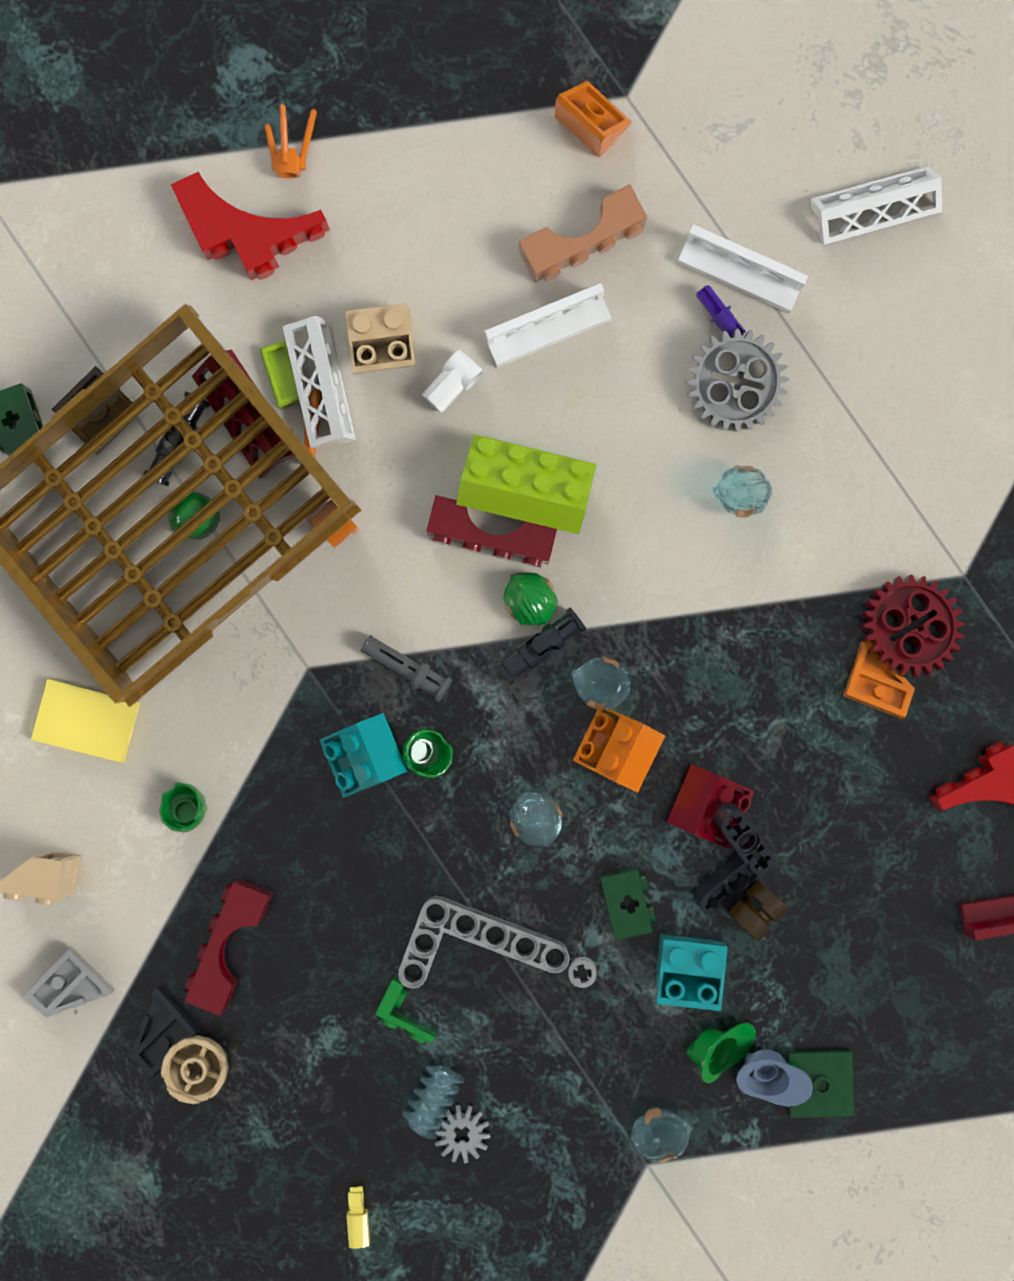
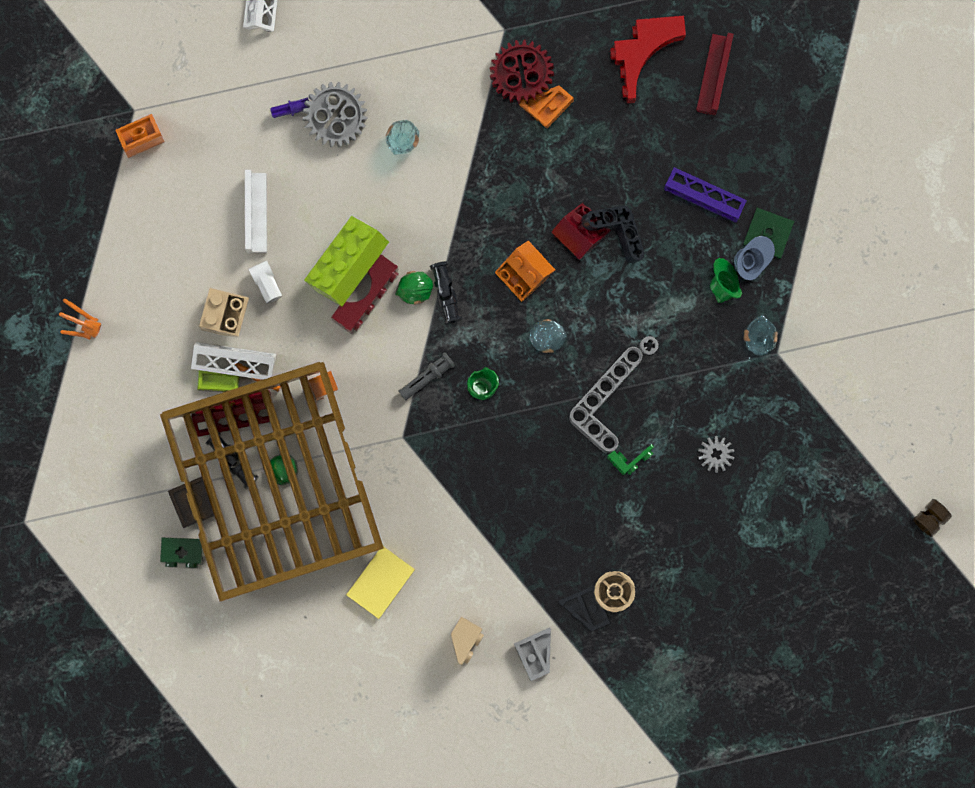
camera: 75 degrees left, 5 degrees down
(182, 807) = (456, 542): green hair -> none
(213, 982) = (569, 565): dark red arch -> none
(256, 238) = (130, 365): red arch -> none
(357, 1219) = (742, 534): light yellow bar -> none
(363, 755) = (468, 423): teal slope -> none
(433, 1100) = (687, 461): clear light blue piece -> none
(549, 252) = (211, 194): nougat arch -> none
(601, 683) = (482, 264): clear light blue hair -> none
(626, 922) = (627, 309): dark green brick -> none
(690, 972) = (672, 281): teal slope -> none
(741, 269) = (269, 85): white fence -> none
(758, 922) = (652, 227): dark brown wheel -> none
(831, 968) = (703, 199): none -> dark purple fence

